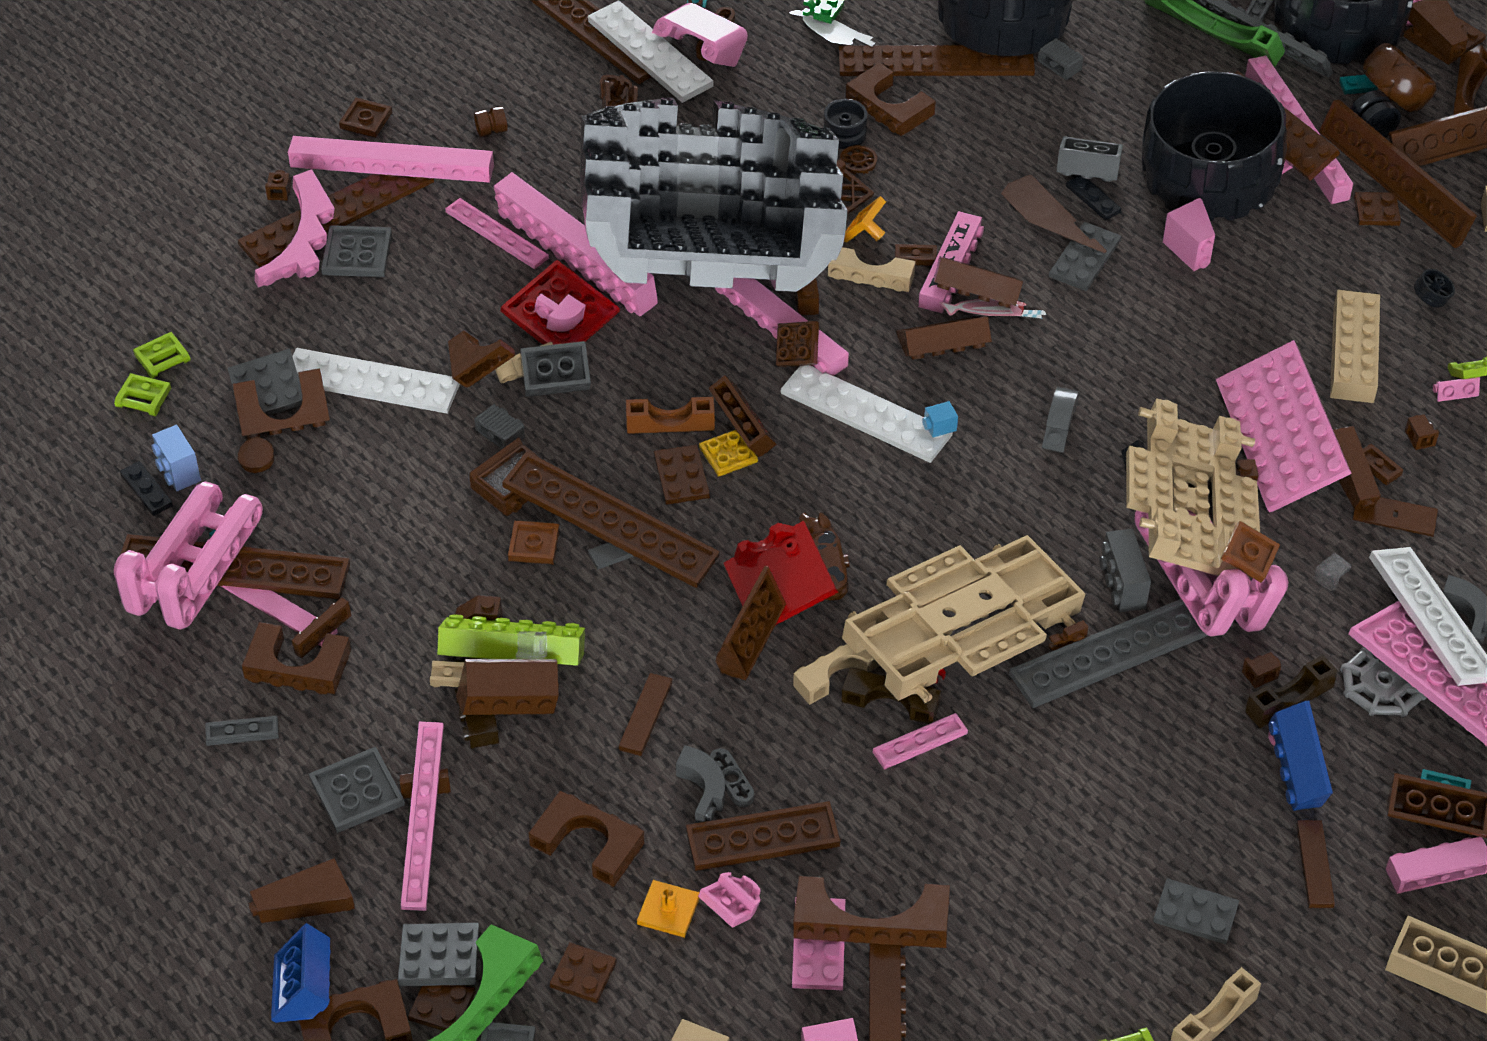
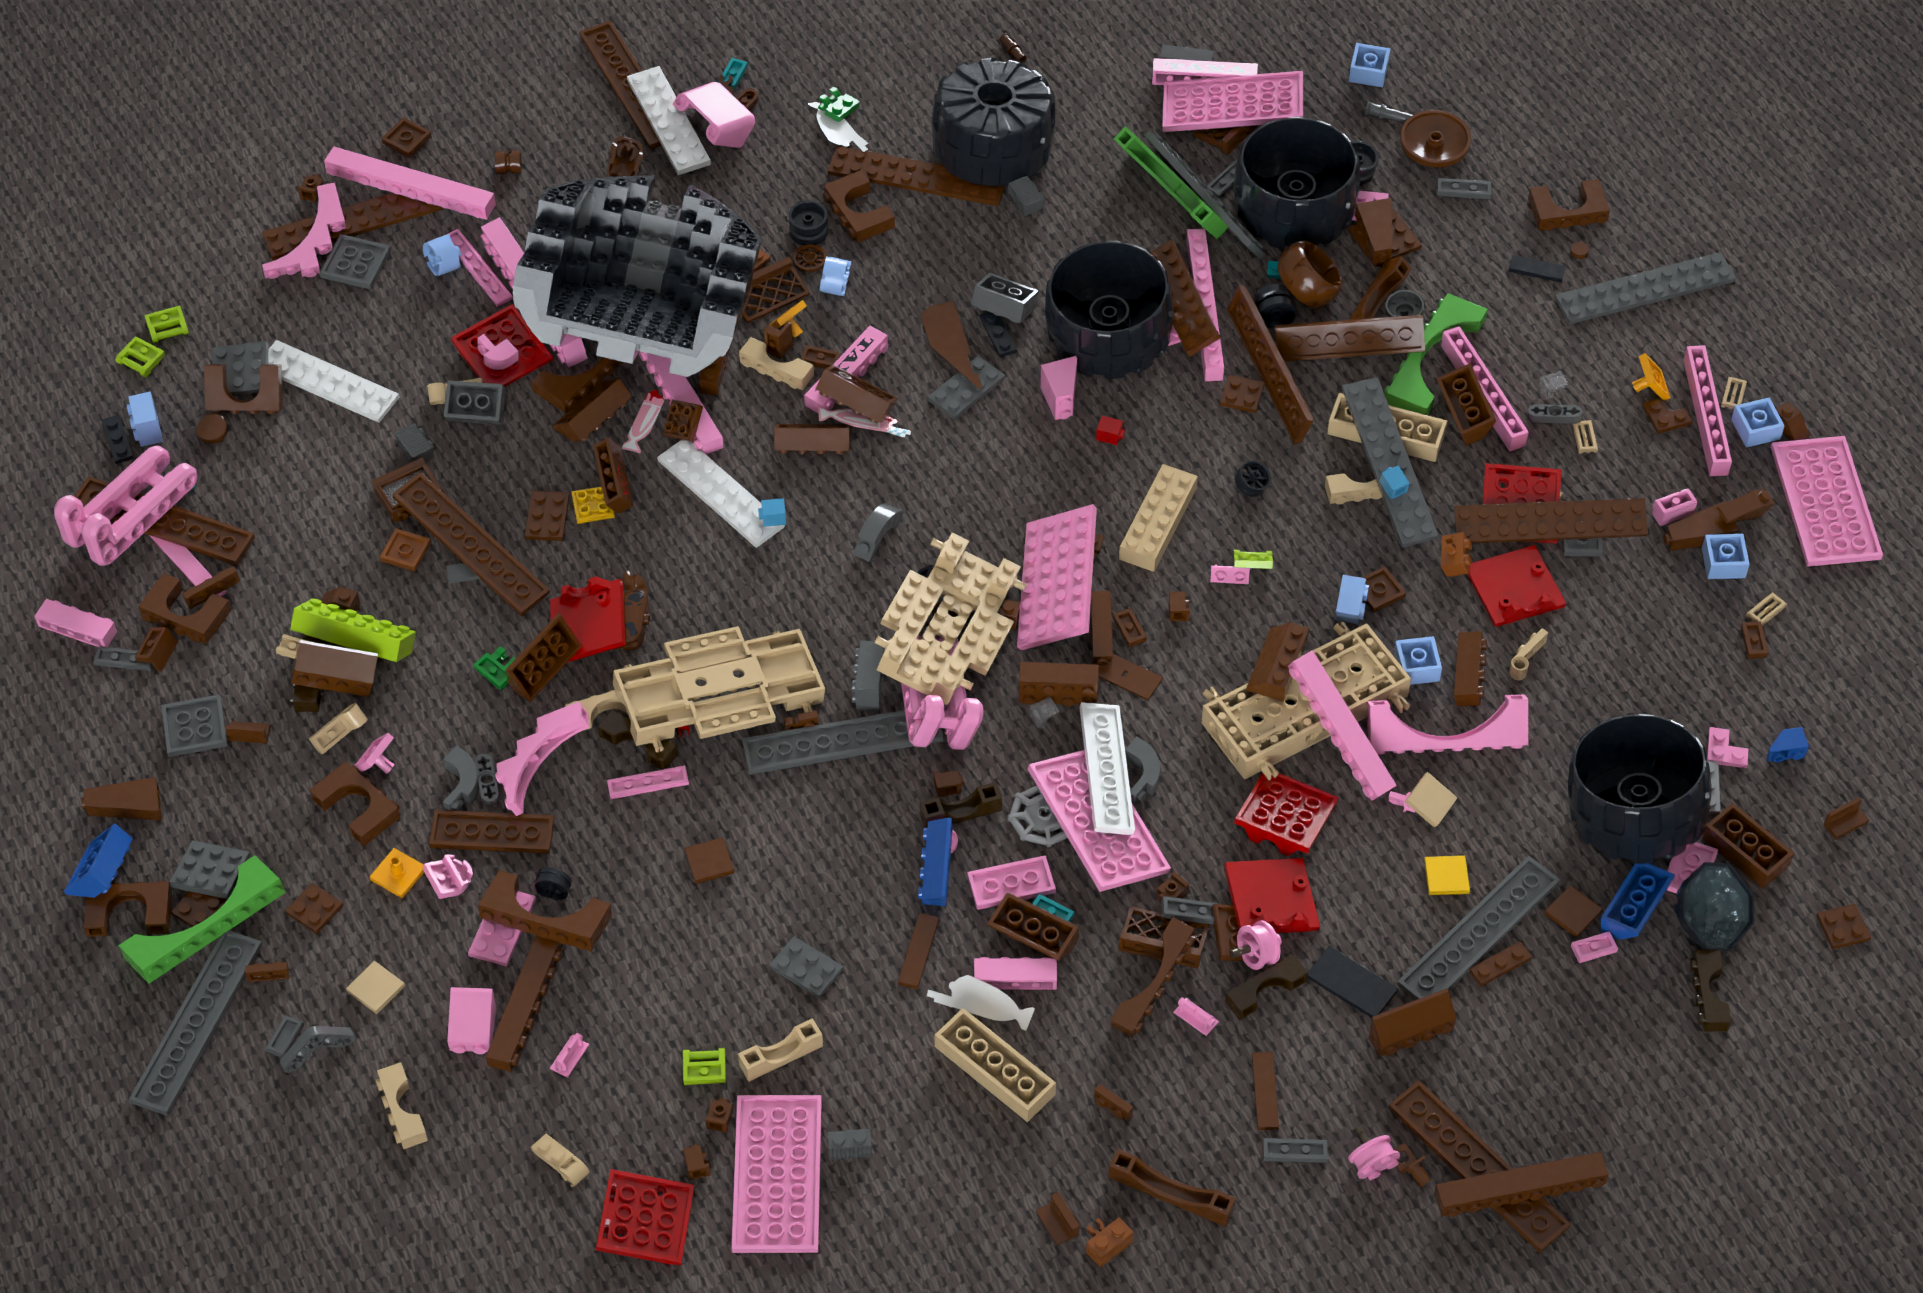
camera: 15 degrees right, 5 degrees up
(169, 702) = (76, 623): none -> bright pink brick
(278, 709) = (157, 647): none -> reddish brown panel
(422, 816) = (232, 758): bright pink plate -> none
(455, 225) = (442, 255): none -> light blue brick
(473, 361) = (411, 380): reddish brown arch -> none
(532, 645) = (361, 639): clear panel -> none
(542, 742) = (337, 728): none -> tan plate
(590, 777) = (374, 755): none -> bright pink tile
(645, 714) = (440, 713): reddish brown tile -> none
(651, 339) = (567, 391): none -> reddish brown arch
(688, 353) = (593, 410): none -> reddish brown slope
(691, 654) = (492, 669): none -> green plate
(694, 416) = (533, 460): dark orange arch -> none
(748, 354) = (644, 420): none -> sticker
(777, 731) = (533, 750): none -> bright pink arch
(863, 879) = (552, 883): none -> black wheel
(865, 242) = (778, 341): none -> reddish brown panel
(898, 170) = (835, 276): none -> light blue brick
(1031, 813) = (709, 860): none -> reddish brown tile
(1250, 551) = (955, 683): dark orange plate -> none
(1260, 269) = (1110, 430): none -> red brick
(1345, 532) = (1061, 681): none -> reddish brown brick
(1374, 765) = (1021, 878): none -> bright pink plate
(1422, 901) = (983, 1000): none -> white sticker

